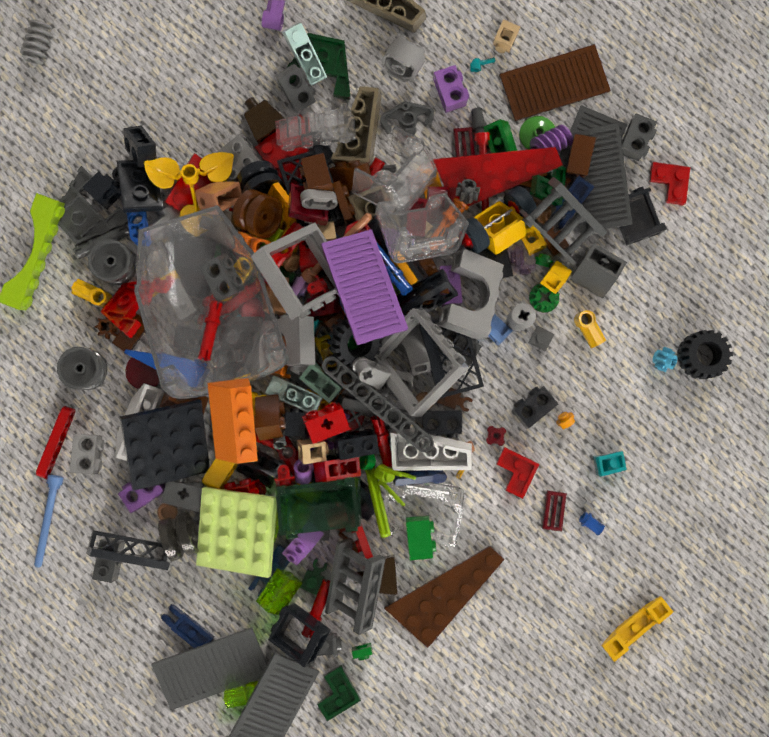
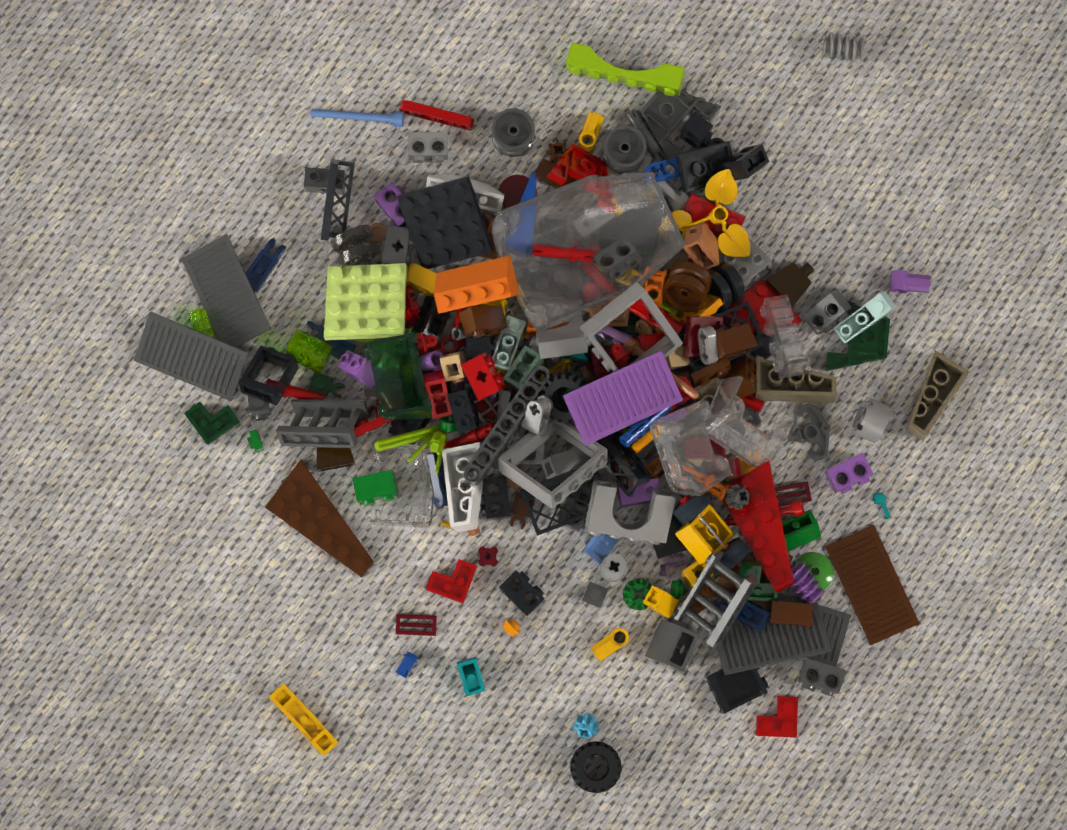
camera: 80 degrees right, 5 degrees down
(478, 121) = (818, 506): dark grey pin -> none
(506, 31) = (920, 526): tan brick -> none

